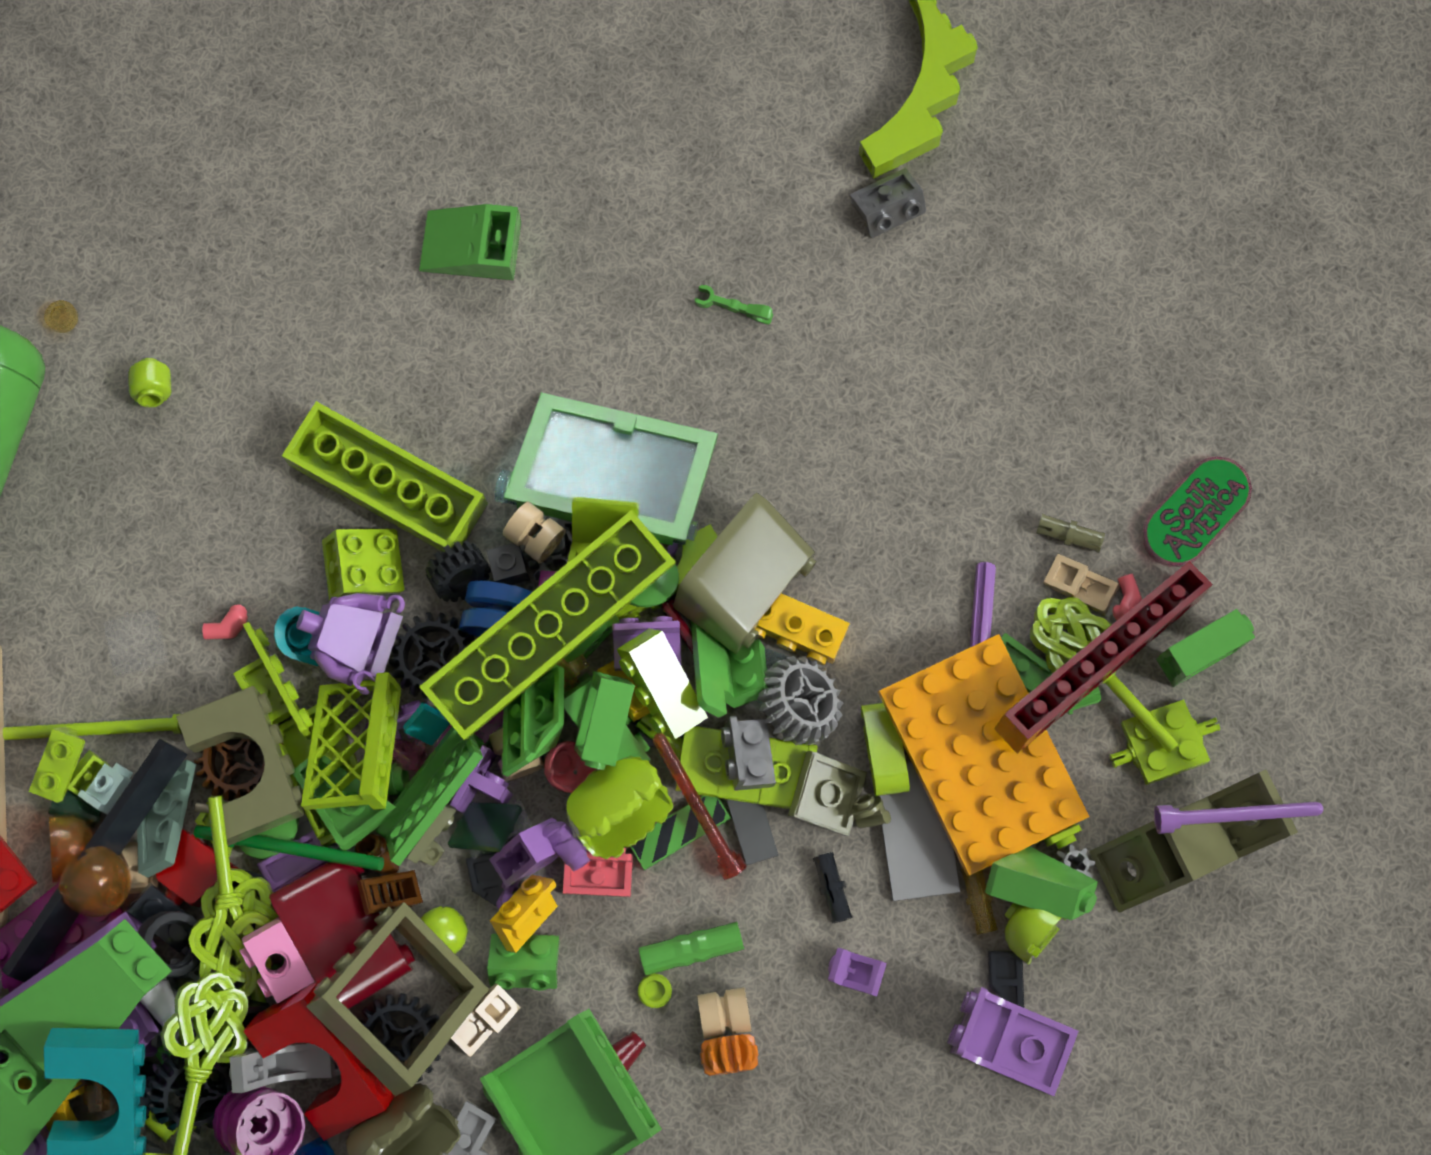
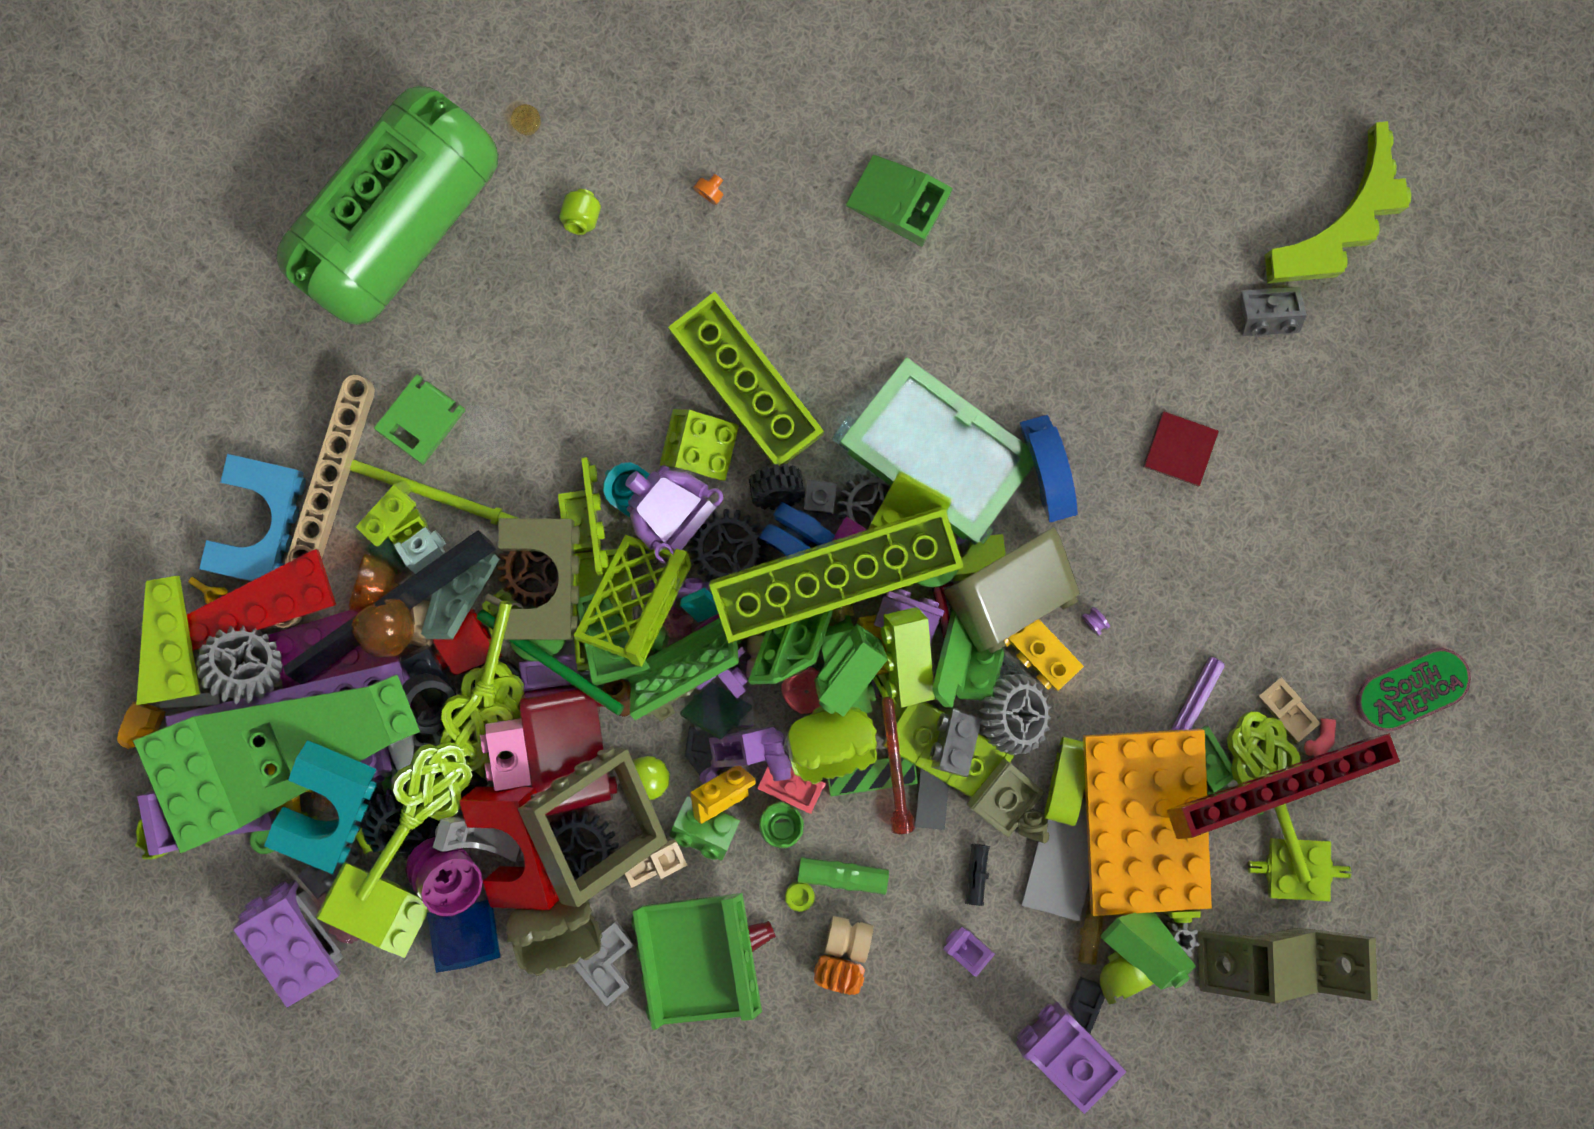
camera: 20 degrees right, 10 degrees up
(60, 650) = (424, 415): none -> bright green container
(229, 626) = (569, 451): coral arm -> none
(274, 308) = (709, 189): none -> orange tile
(407, 888) = (632, 735): reddish brown slope -> none
(525, 524) = (848, 474): tan wheel -> none
(609, 931) = (784, 833): none -> bright green hair
(733, 440) = (1052, 468): none -> blue arch
(758, 312) = (1117, 362): bright green piece -> none
(844, 575) = (1096, 621): none -> medium lavender bush
(857, 370) = (1180, 449): none -> dark red tile
(1070, 533) = (1300, 664): olive pin -> none
(1170, 818) = (1278, 948): medium lavender piece -> none
(1206, 647) = (1370, 810): bright green window -> none

